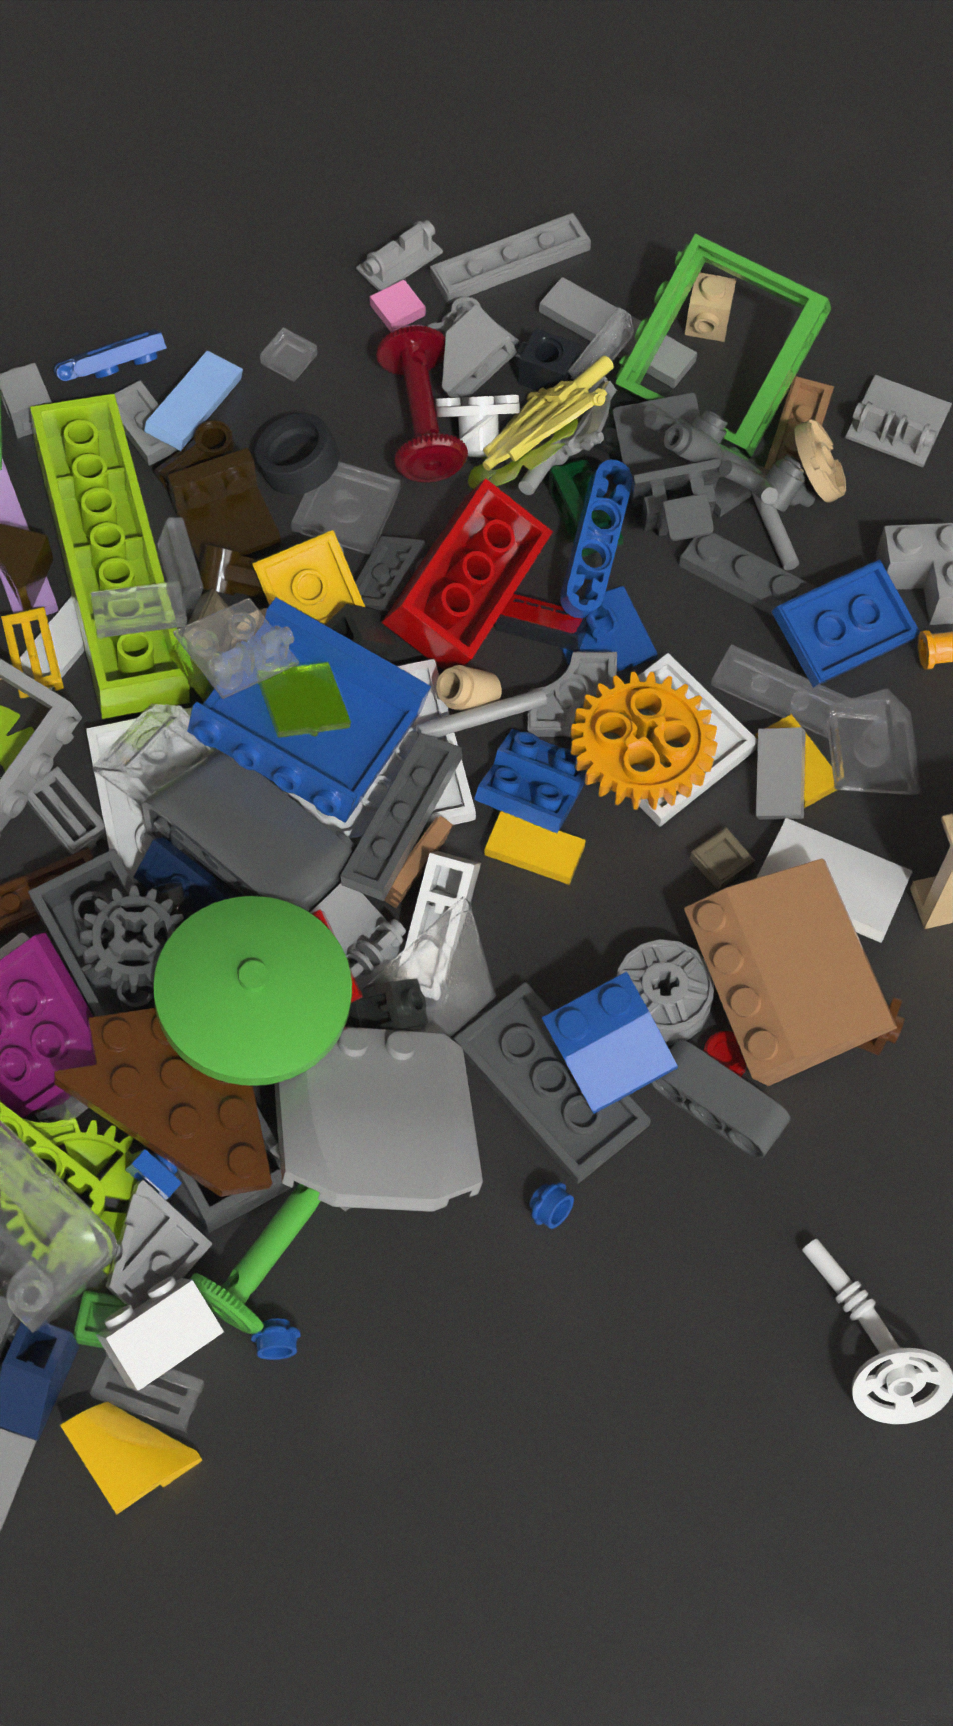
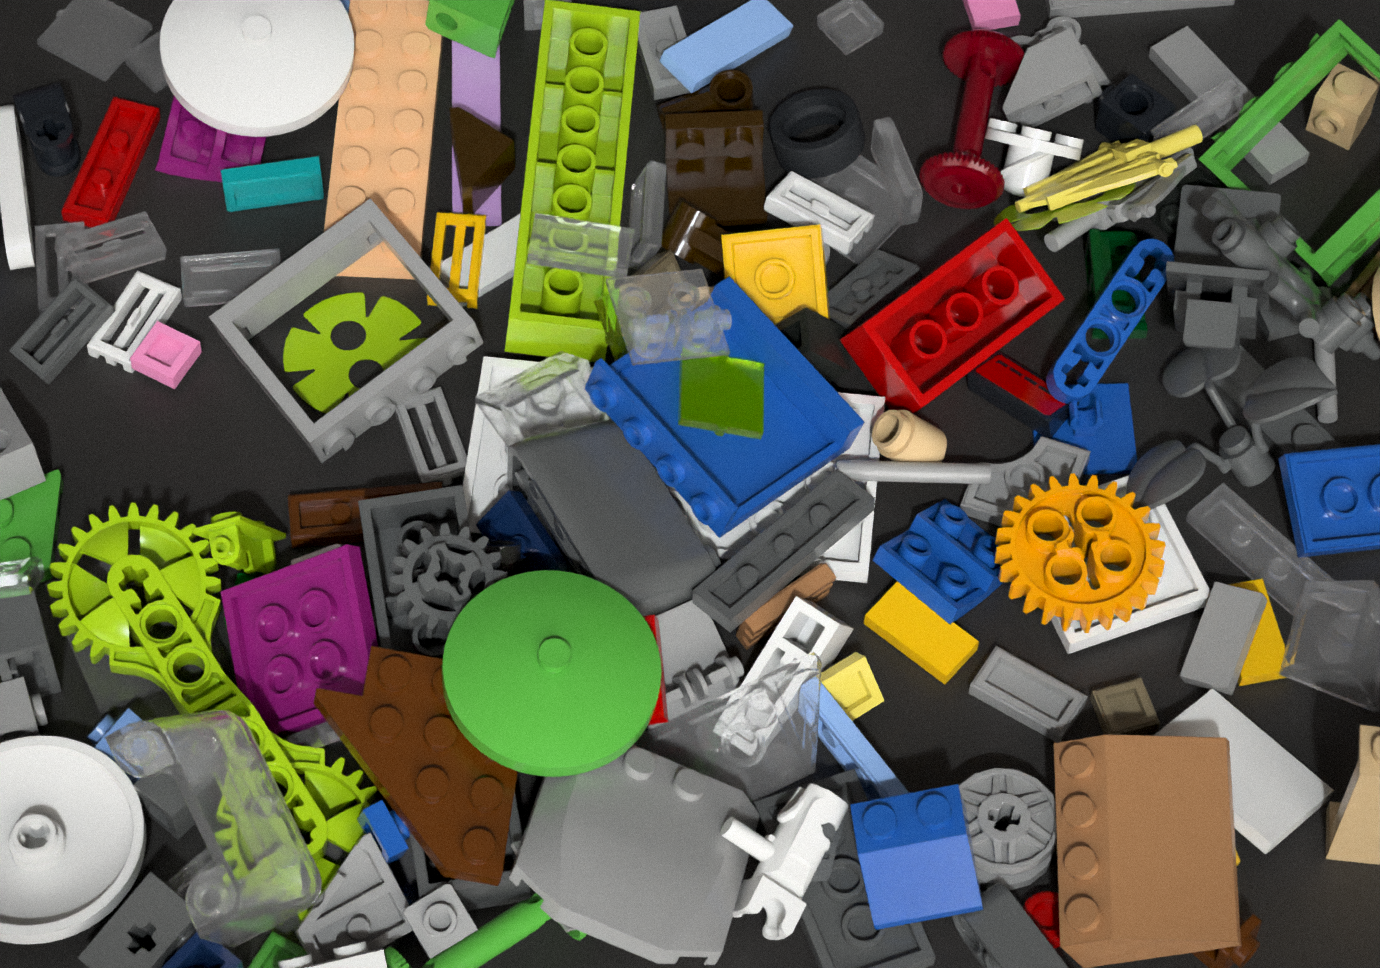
camera: 20 degrees right, 5 degrees down
(229, 1235) = (439, 920): none -> light grey bracket
(322, 520) = (823, 202): none -> white tile
(375, 465) = (896, 171): none -> clear tile
(390, 1006) = (697, 743): pearl dark grey bracket -> none
(497, 915) = (852, 685): none -> light yellow plate
(504, 1079) = (789, 859): none -> white piece
(521, 968) = (854, 750): none -> light blue tile
(640, 871) = (1027, 694): none -> light grey tile
(765, 556) = (1279, 391): none -> dark grey plant

